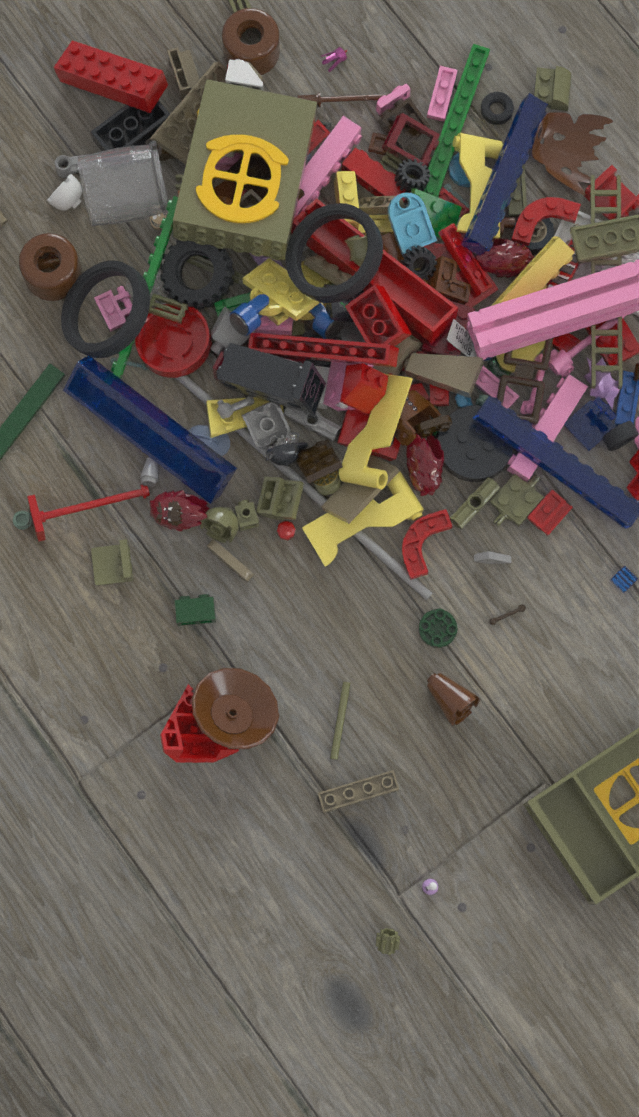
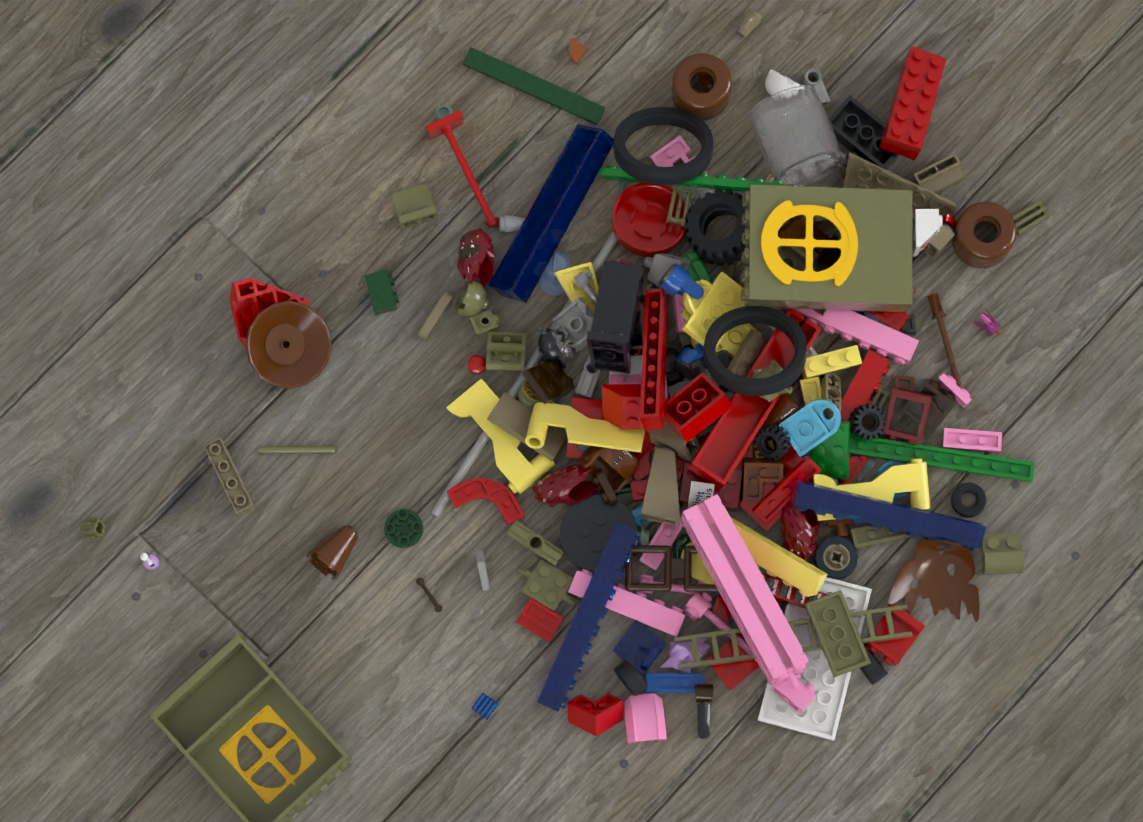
camera: 85 degrees right, 0 degrees up
(542, 209) = (857, 557): red plate -> none

